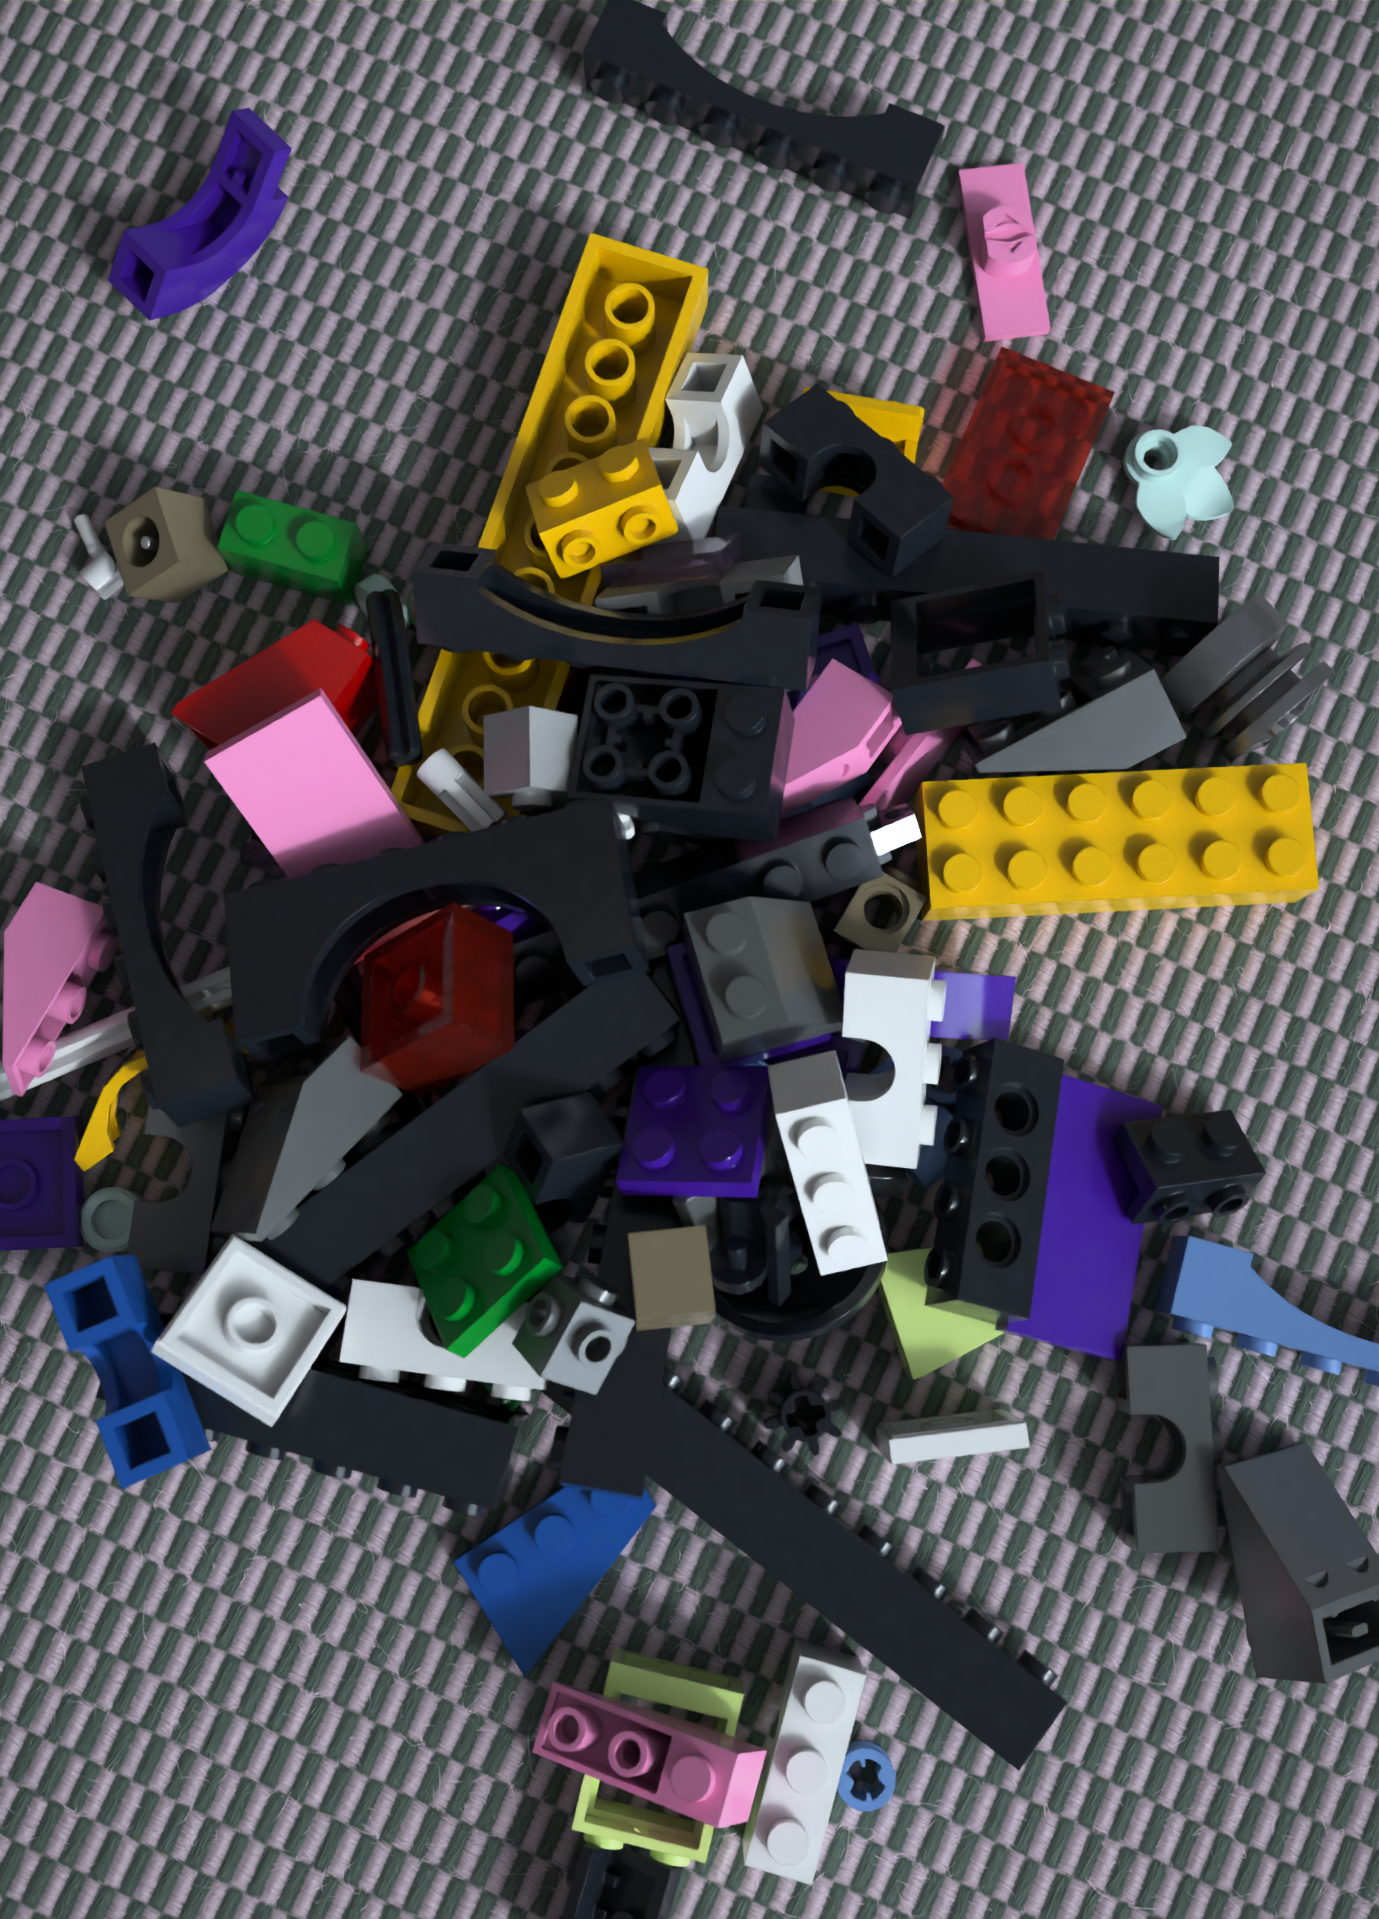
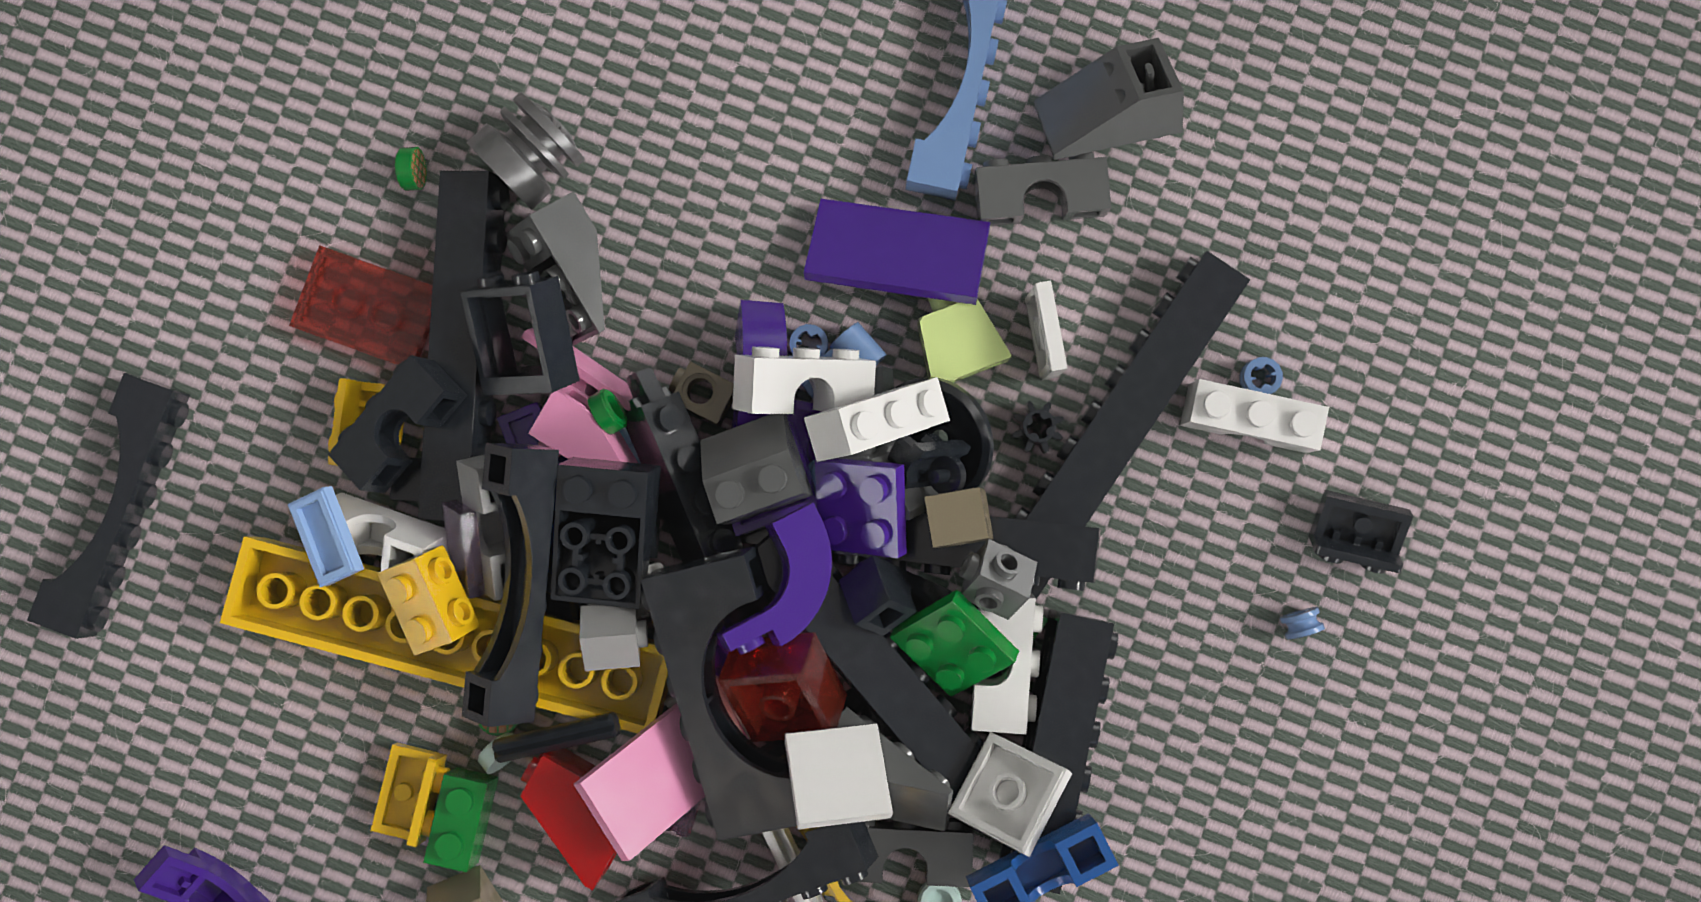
camera: 90 degrees left, 5 degrees up
(297, 1069) = (838, 776): none -> white tile
(337, 480) = (409, 793): none -> yellow bracket
(460, 791) = (637, 683): white piece -> none
(478, 1813) = (1302, 623): none -> medium blue bush
(547, 1564) = (1144, 590): blue wing -> none
(584, 1036) = (803, 585): none -> dark purple arch
(651, 1755) = (1257, 513): bright pink slope -> none
(674, 1684) = (1214, 500): yellowish green window -> none
(701, 374) = (325, 536): none -> light blue tile
(859, 772) = (607, 411): none -> green tile
(1003, 252) = (213, 326): bright pink piece -> none
(1018, 1156) = (862, 293): black brick -> none
(1115, 841) = (643, 236): yellow brick -> none
(1185, 485) = (378, 193): light aqua plate -> none
(1188, 1166) = (860, 181): black bracket -> none
(1221, 521) = (410, 168): none -> green tile

